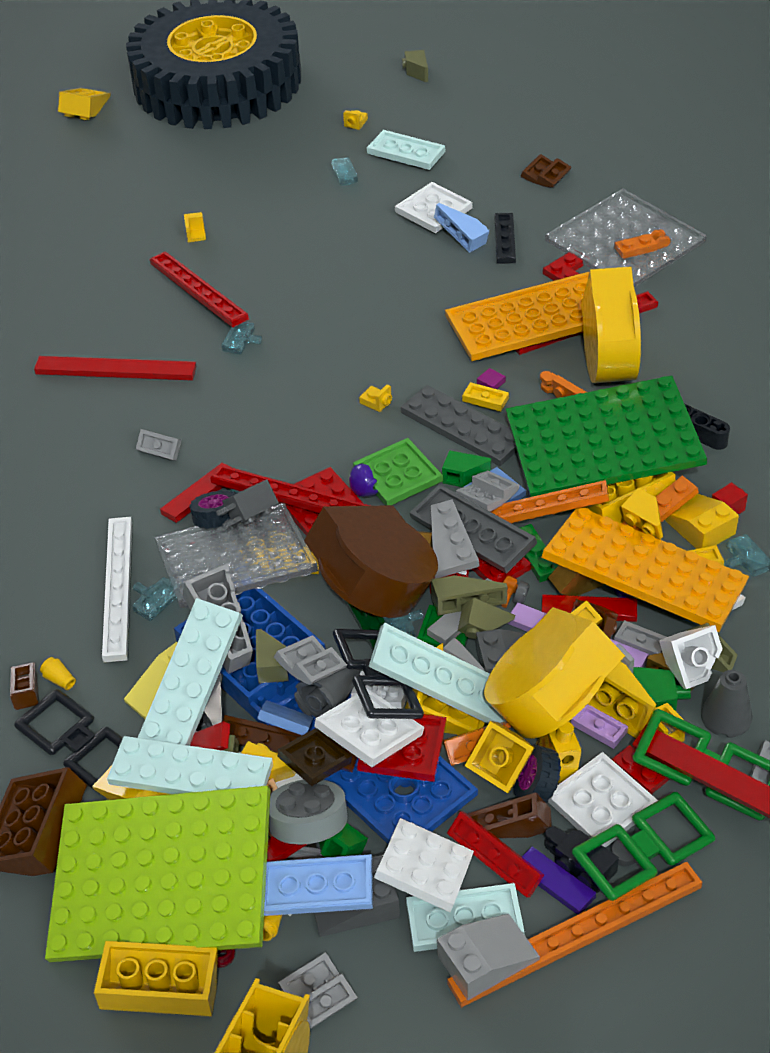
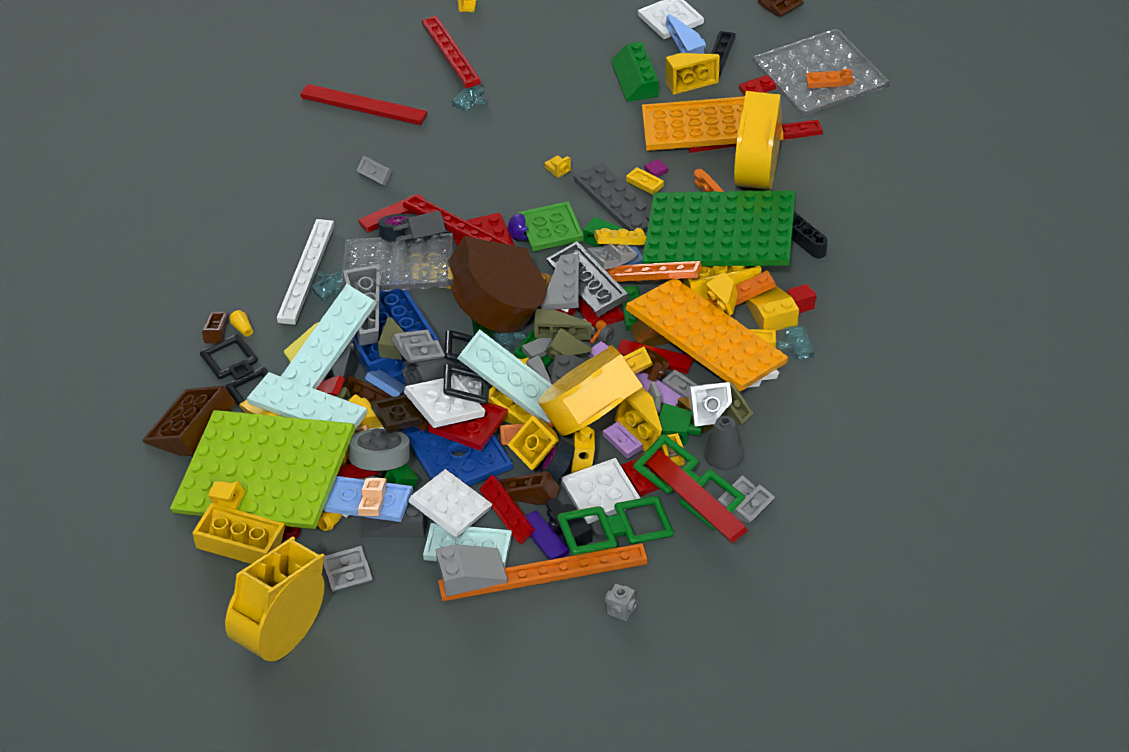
camera: 15 degrees right, 0 degrees up
(125, 924) = (227, 494): none -> yellow window
(325, 883) = (372, 497): none -> light nougat slope
(422, 275) = (635, 72): none -> green slope
(486, 262) = (691, 71): none -> yellow slope
(491, 468) = (620, 236): none -> yellow plate
(696, 952) = (620, 602): none -> light grey brick

